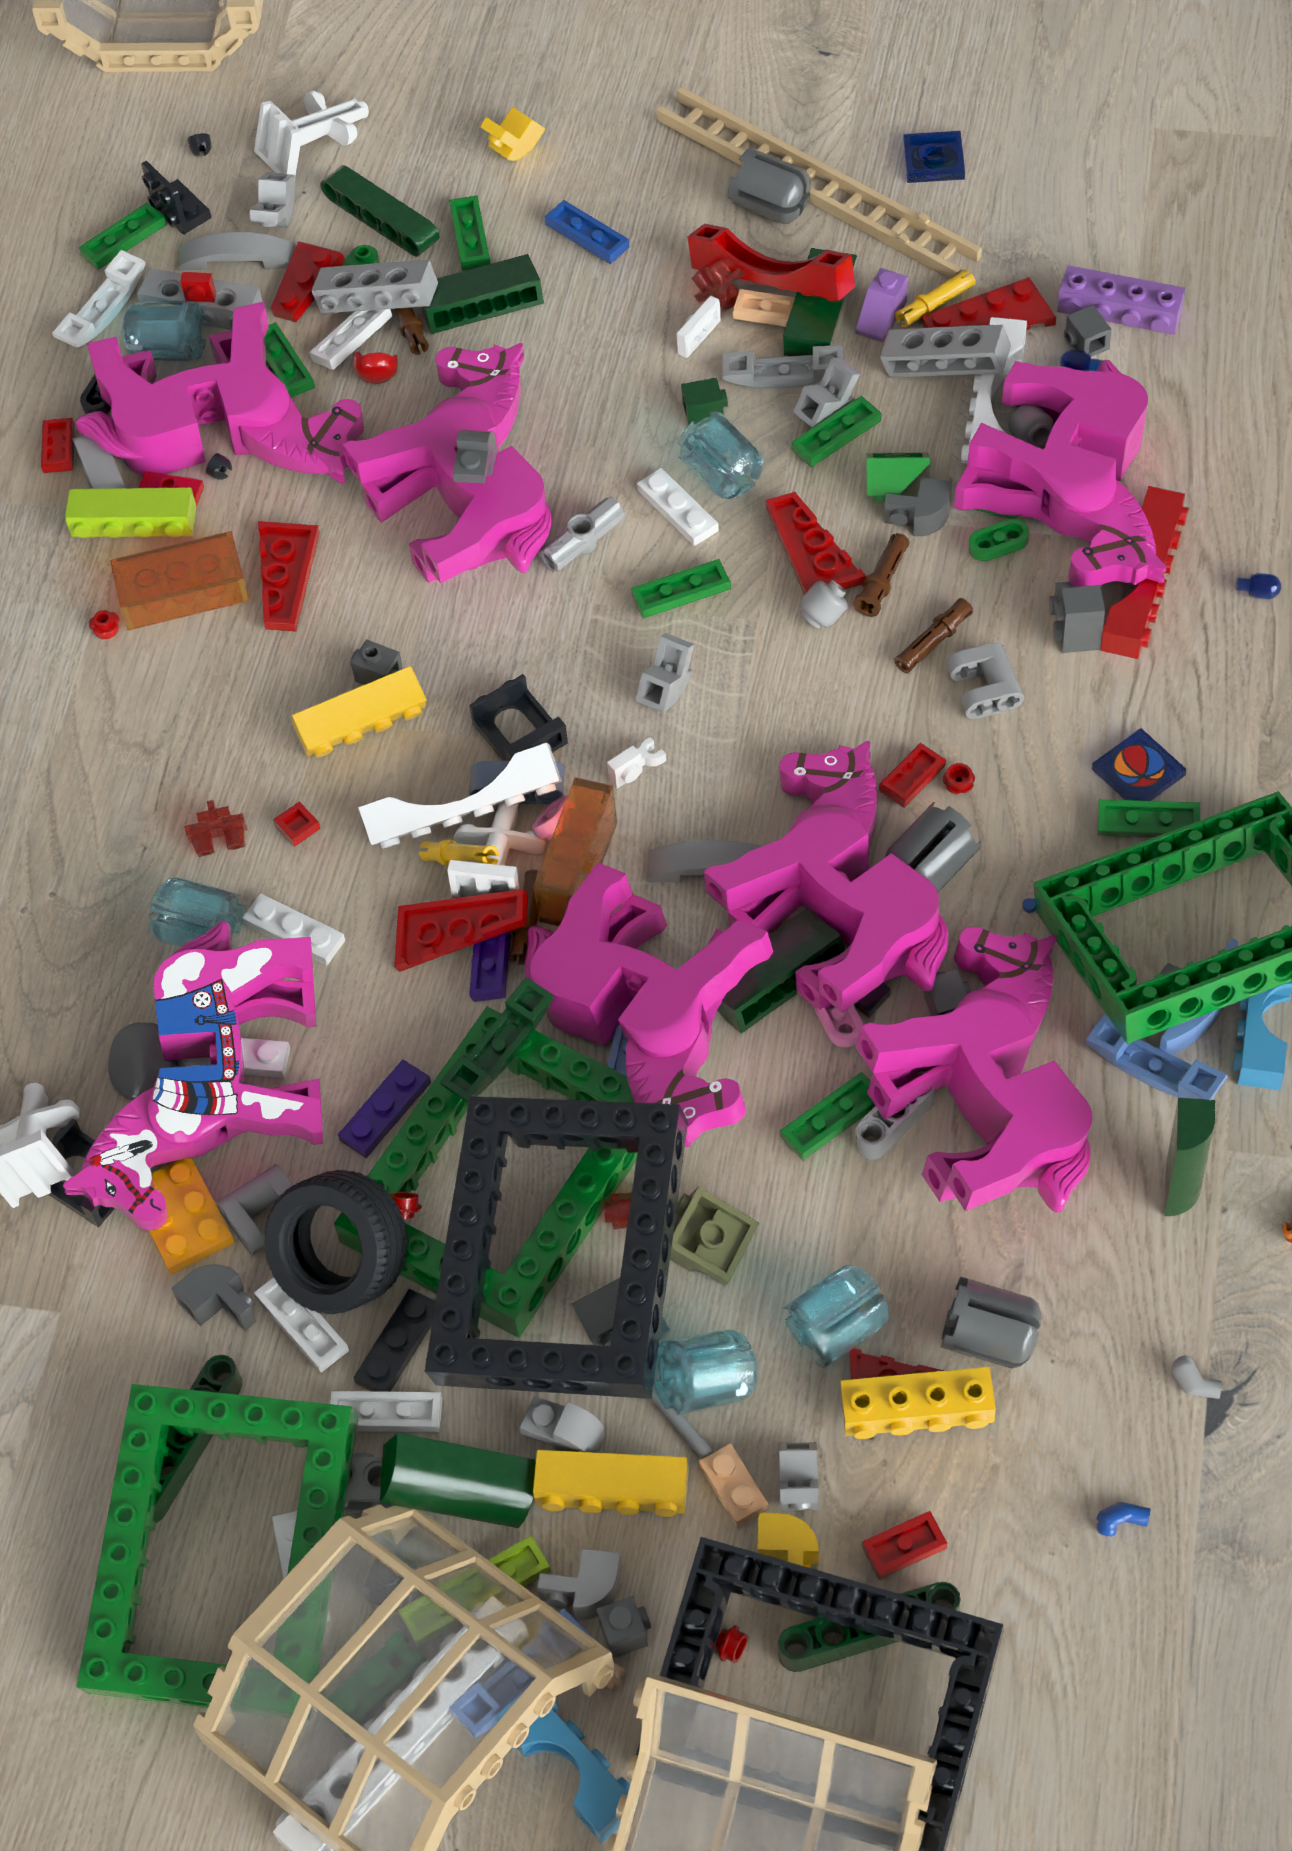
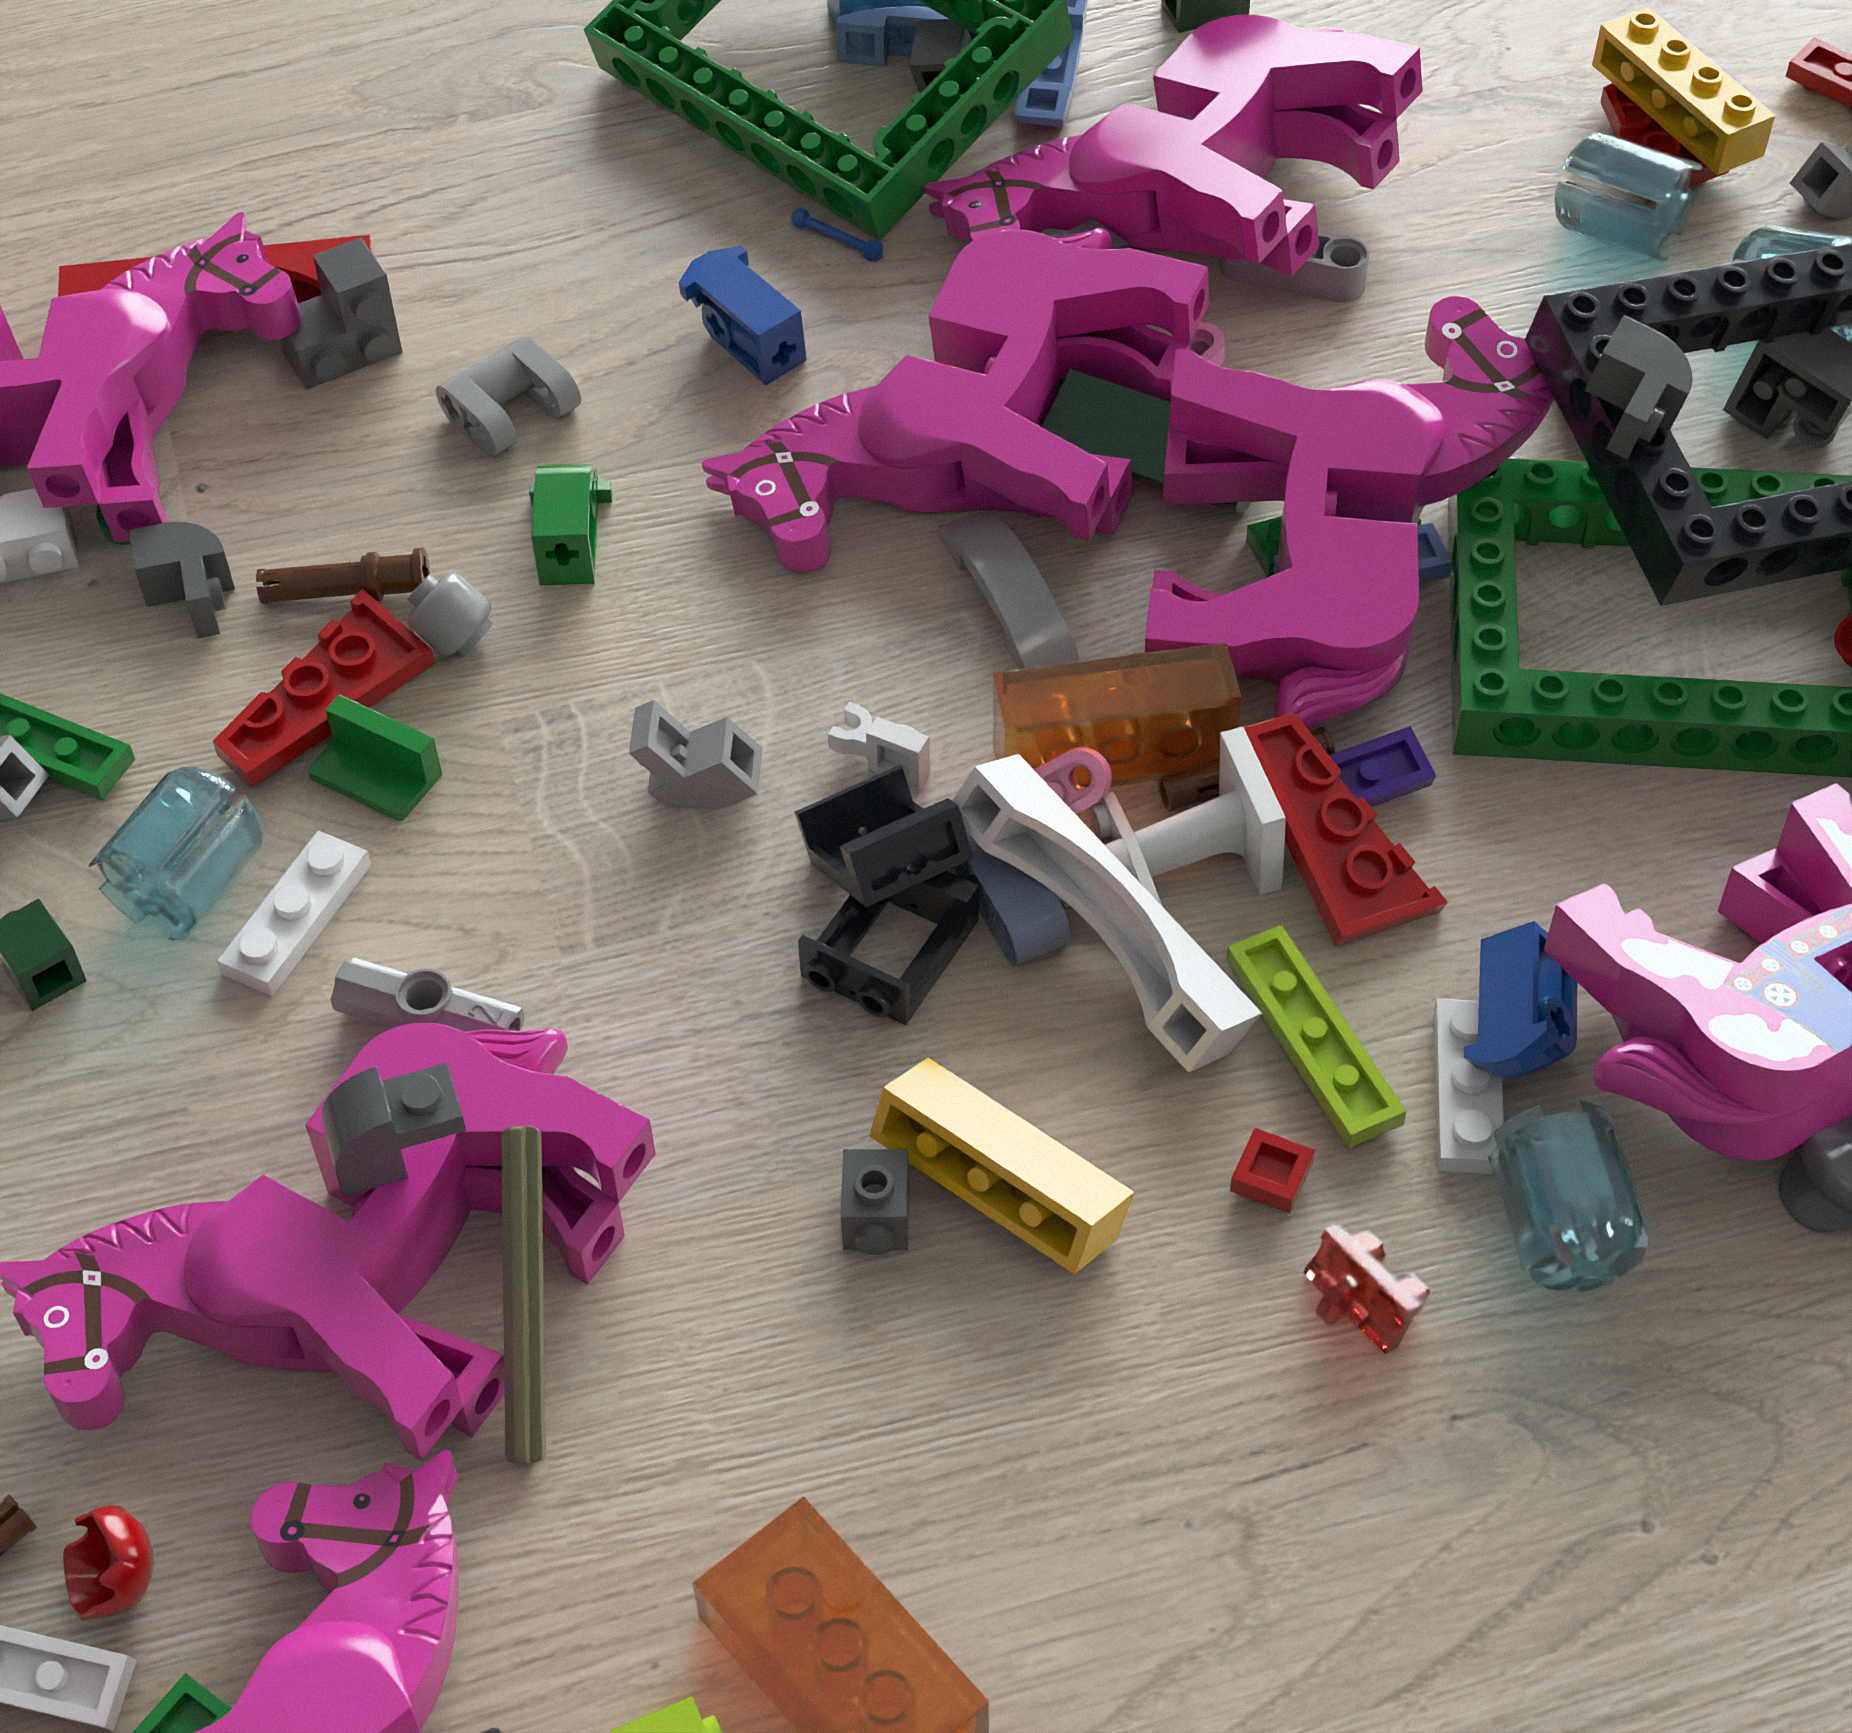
camera: 120 degrees left, 5 degrees down
(285, 566) = (706, 1483): red wing -> none
(327, 956) = (1523, 1005): none -> blue piece
(356, 873) = (1316, 1036): none -> lime plate
(384, 1108) = (1686, 813): dark purple plate -> none
(396, 512) = (523, 1295): none -> olive axle
(451, 850) = (1211, 870): yellow pin -> none
(500, 1043) = (1533, 646): dark green slope -> none
(537, 713) = (894, 835): none -> black panel
(580, 1109) = (1645, 378): none -> dark grey brick
(681, 588) = (488, 827): green plate -> none
(754, 557) = (376, 759): none -> green panel
(829, 1117) = (1338, 318): green plate -> none
(872, 677) = (566, 522): none -> green piece
(893, 472) = (115, 629): green slope -> none
(912, 775) = (719, 419): red plate -> none
(936, 845) = (861, 329): dark grey cylinder -> none
(943, 626) = (423, 476): reddish brown pin -> none
(959, 772) = (702, 372): red plate -> none
(992, 802) = (745, 313): none -> blue piece
(992, 1324) = (1526, 76): dark grey cylinder -> none
(995, 539) = (216, 467): green plate -> none
(1139, 768) = (584, 209): tile -> none
(1144, 817) = (672, 167): green plate -> none
(1260, 585) = (193, 177): clear blue cylinder -> none

